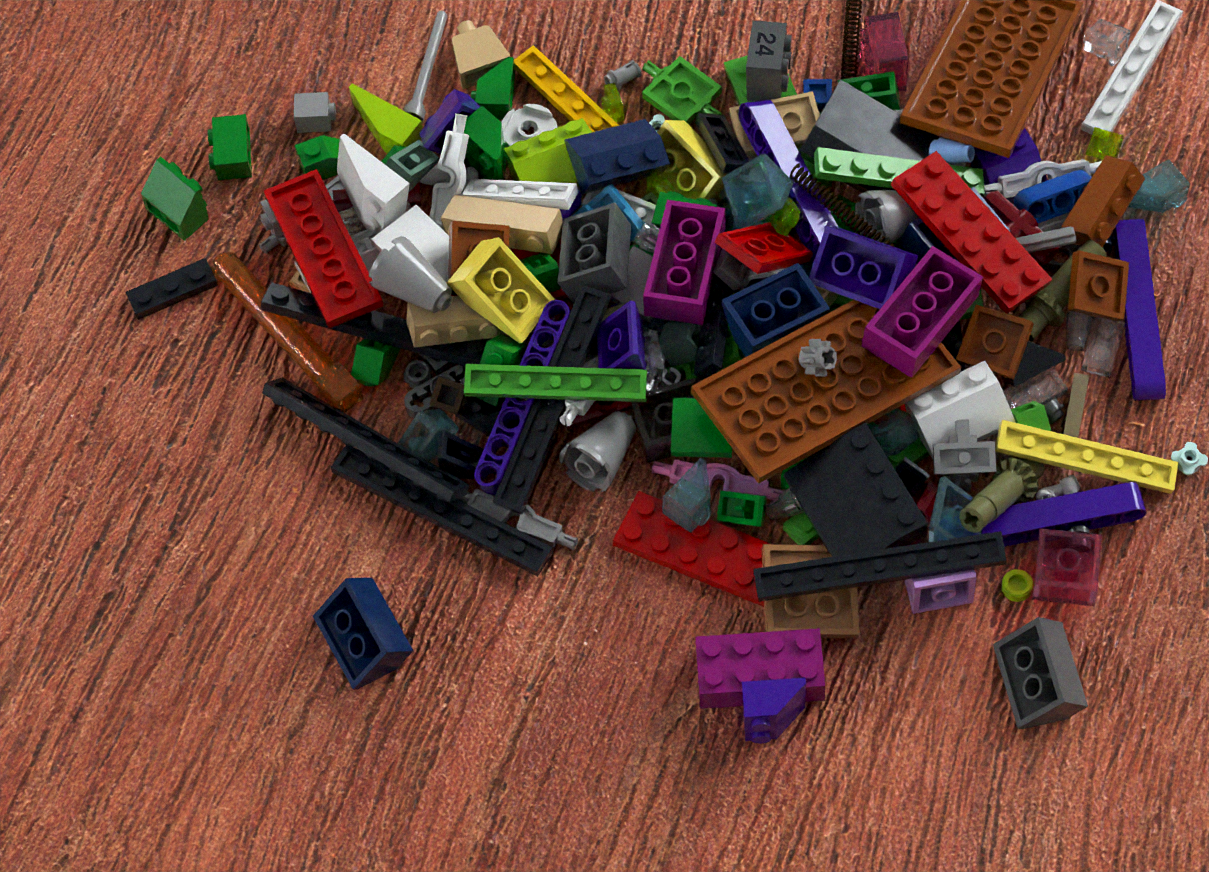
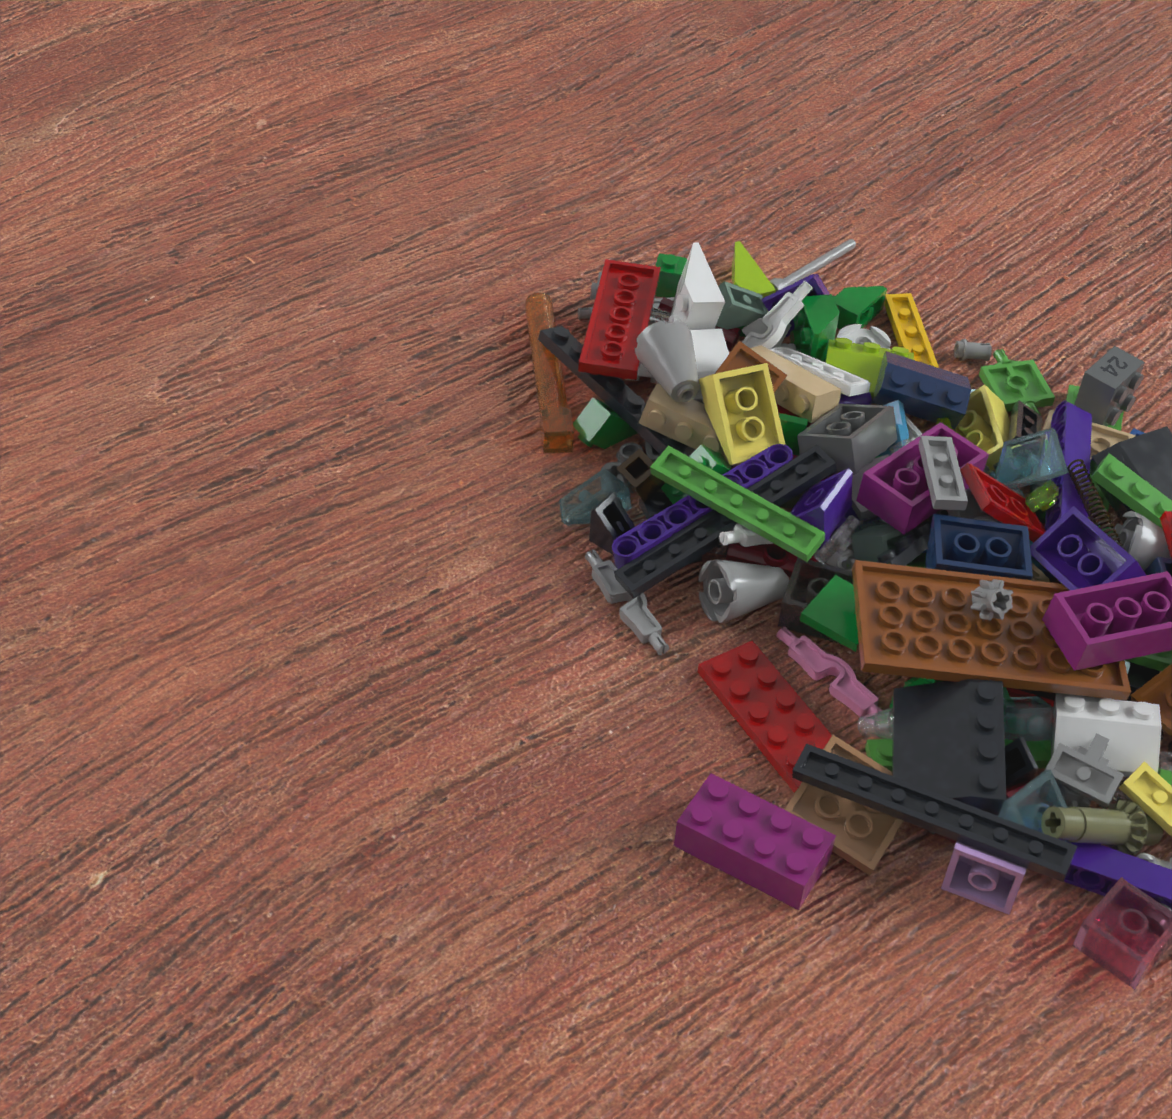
camera: 25 degrees right, 15 degrees down
(171, 288) = (484, 301): black plate -> none
(174, 199) = (535, 243): green slope -> none
(230, 147) = (610, 237): green brick -> none
(313, 112) = (691, 235): light grey brick -> none
(362, 631) = (423, 606): dark blue slope -> none
(364, 438) = (549, 477): black plate -> none
(452, 516) = (570, 562): black plate -> none
(476, 52) = (858, 271): tan torso -> none
(612, 102) = (949, 359): clear neon green plate -> none
(689, 498) = (792, 664): clear light blue slope -> none
(706, 257) = (942, 473): none -> light grey plate
(742, 508) = (839, 705): green slope -> none
(771, 707) = (739, 875): dark purple slope -> none
(1017, 585) = (1064, 924): lime tile -> none
(1040, 674) = (1035, 1014): dark grey slope -> none

